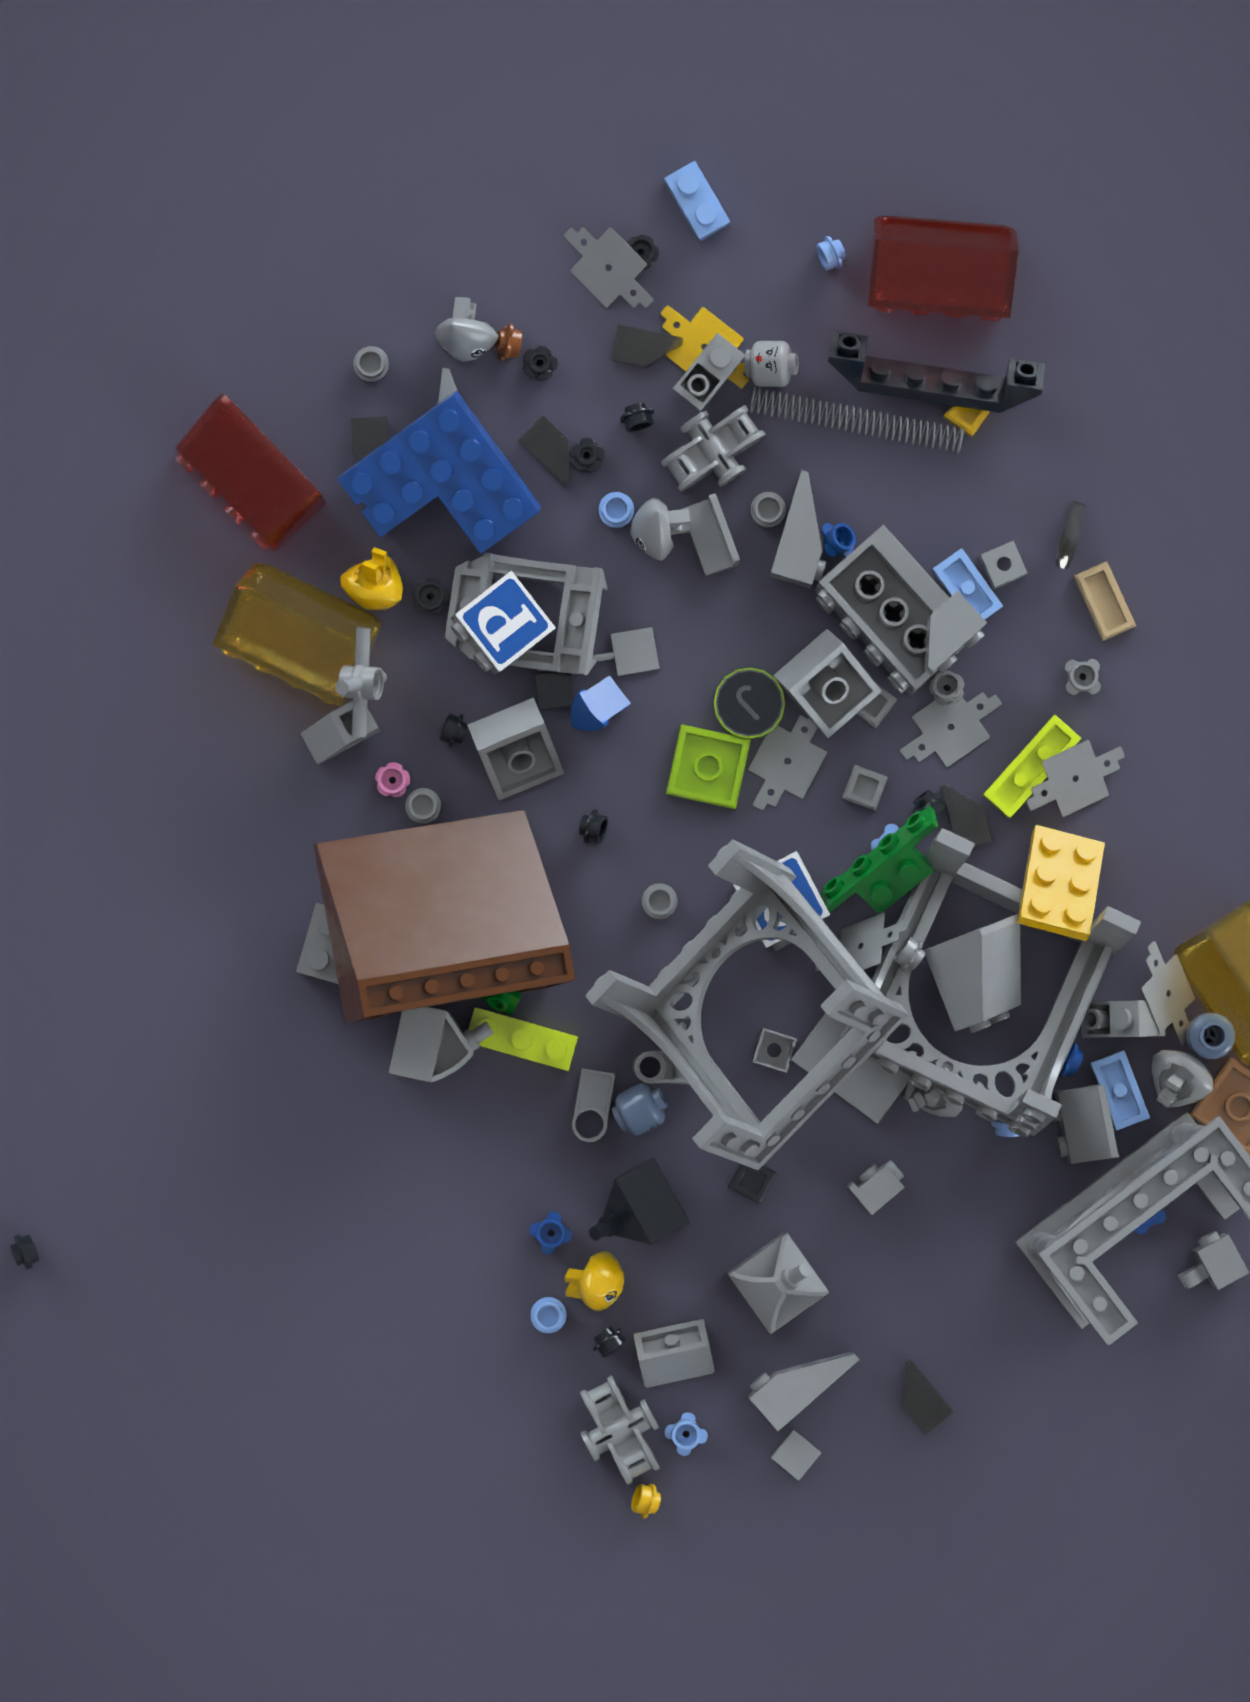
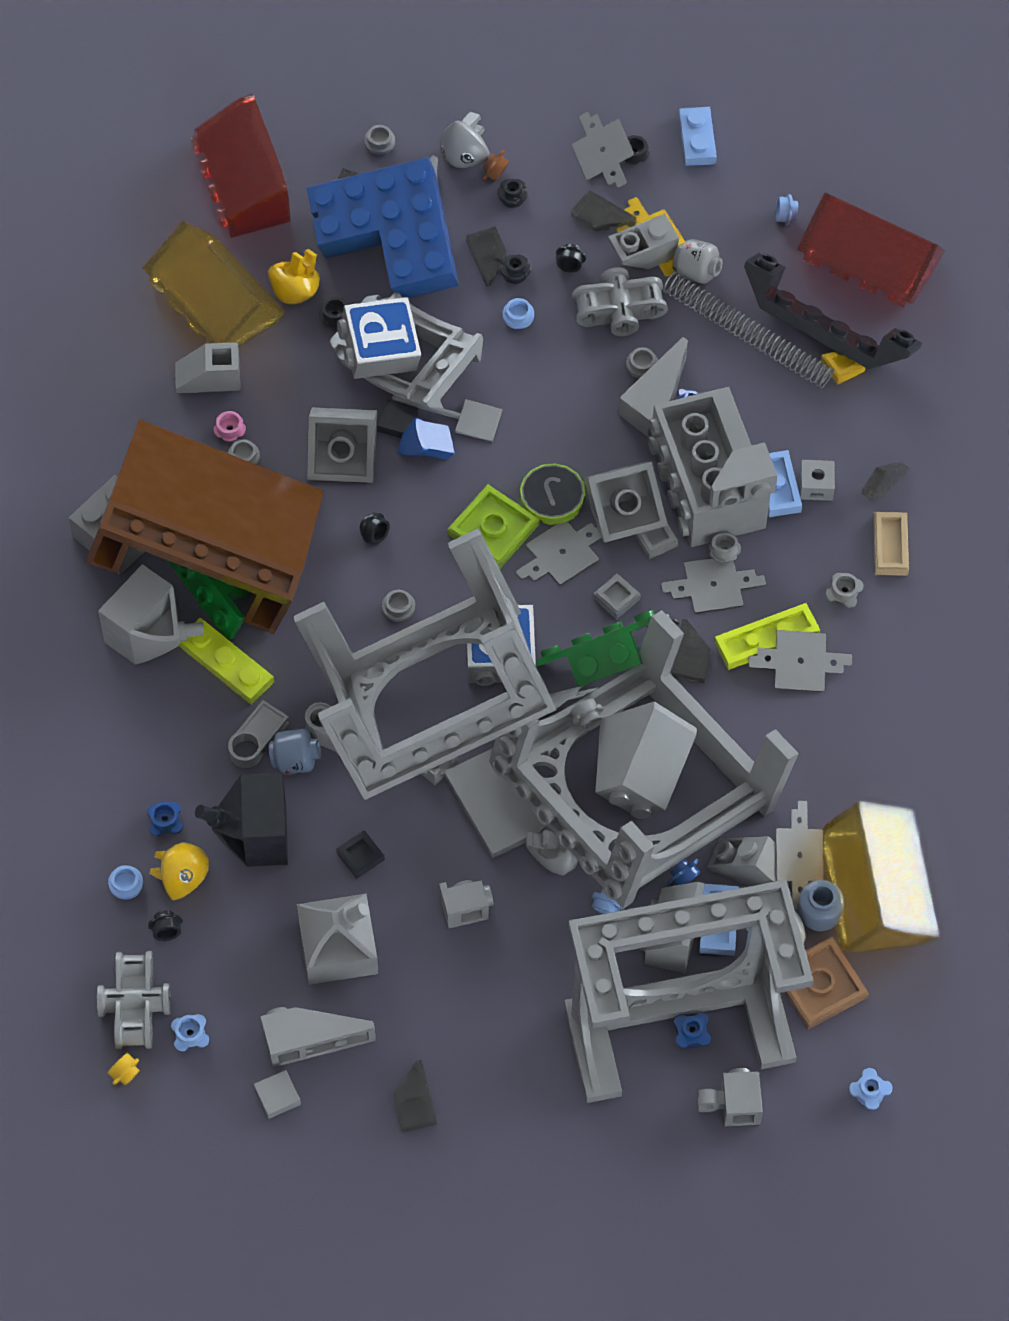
camera: 30 degrees right, 25 degrees down
(361, 682) = (242, 325): light grey bar -> none
(453, 729) = (298, 411): black plate -> none
(654, 525) = (543, 331): light grey piece -> none
(674, 1353) = (215, 962): light grey panel -> none
(712, 537) = (585, 363): light grey panel -> none
(1060, 883) = (742, 722): yellow plate -> none

